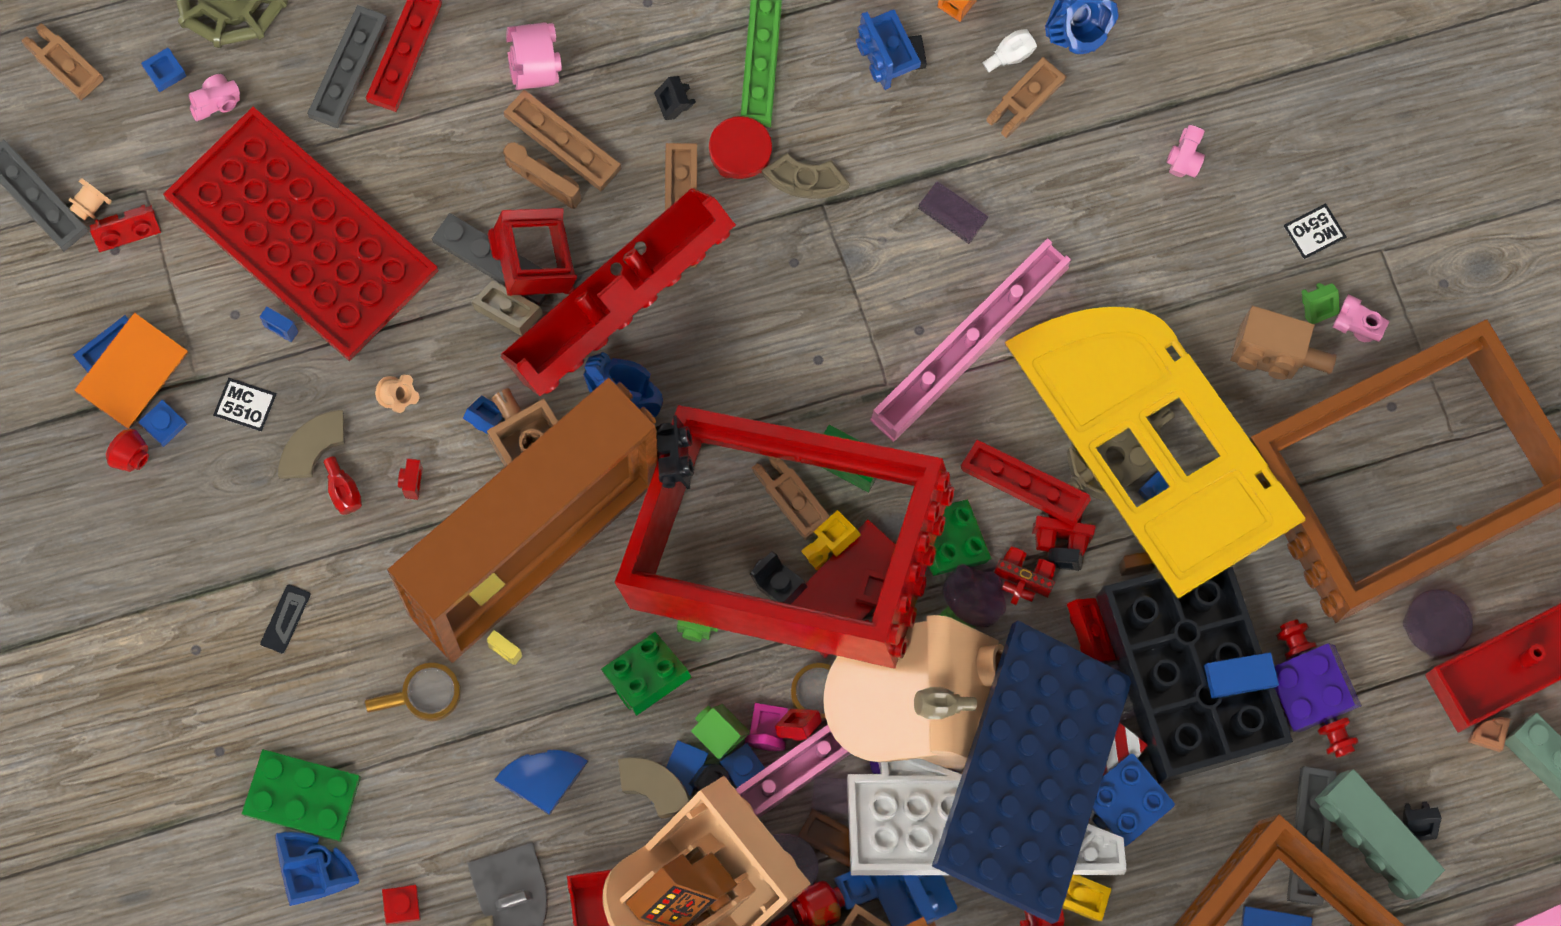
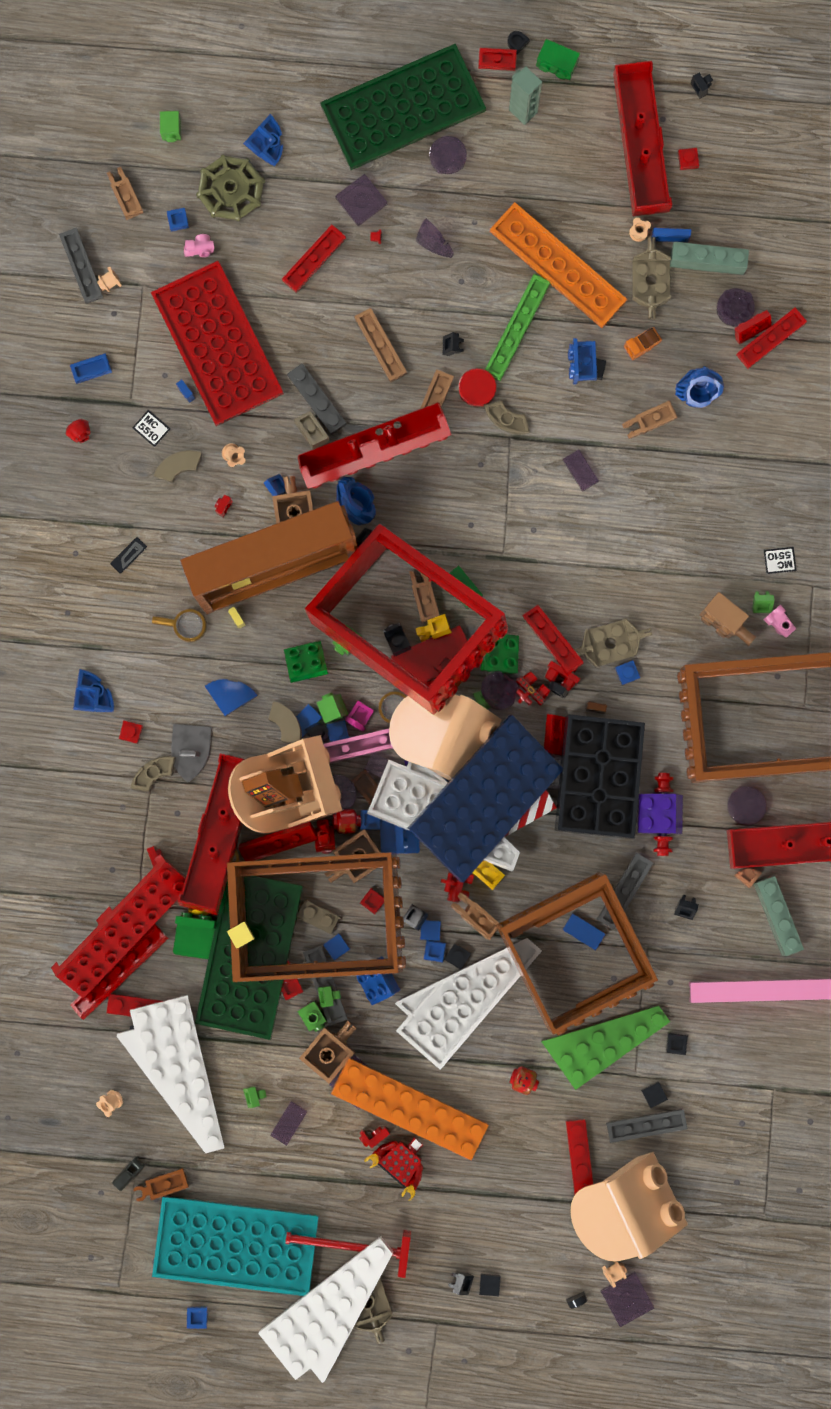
camera: 30 degrees right, 10 degrees up
(115, 232) = (131, 304): red hinge -> none
(131, 371) = (97, 386): orange tile -> none
(162, 423) = (103, 422): blue plate -> none
(301, 795) = (100, 653): green plate -> none
(342, 488) = (184, 496): red piece -> none
(347, 66) = (279, 256): dark grey plate -> none
(532, 55) = (382, 289): bright pink brick -> none
(533, 280) = (322, 395): red piece -> none
(542, 175) = (361, 361): medium nougat hinge -> none
(679, 465) = (368, 543): black hinge -> none
(798, 724) = (375, 721): red plate -> none
(941, 703) = (447, 745): dark tan piece -> none
(969, 340) = (558, 547): bright pink tile -> none
(1012, 50) = (654, 389): white piece -> none
(1107, 375) = (623, 597): yellow door -> none
(1130, 800) = (533, 833): blue bracket -> none
(1185, 158) = (724, 489): bright pink plate -> none
(1241, 675) = (621, 792): blue tile -> none
(1379, 835) = (659, 905): sand green brick -> none

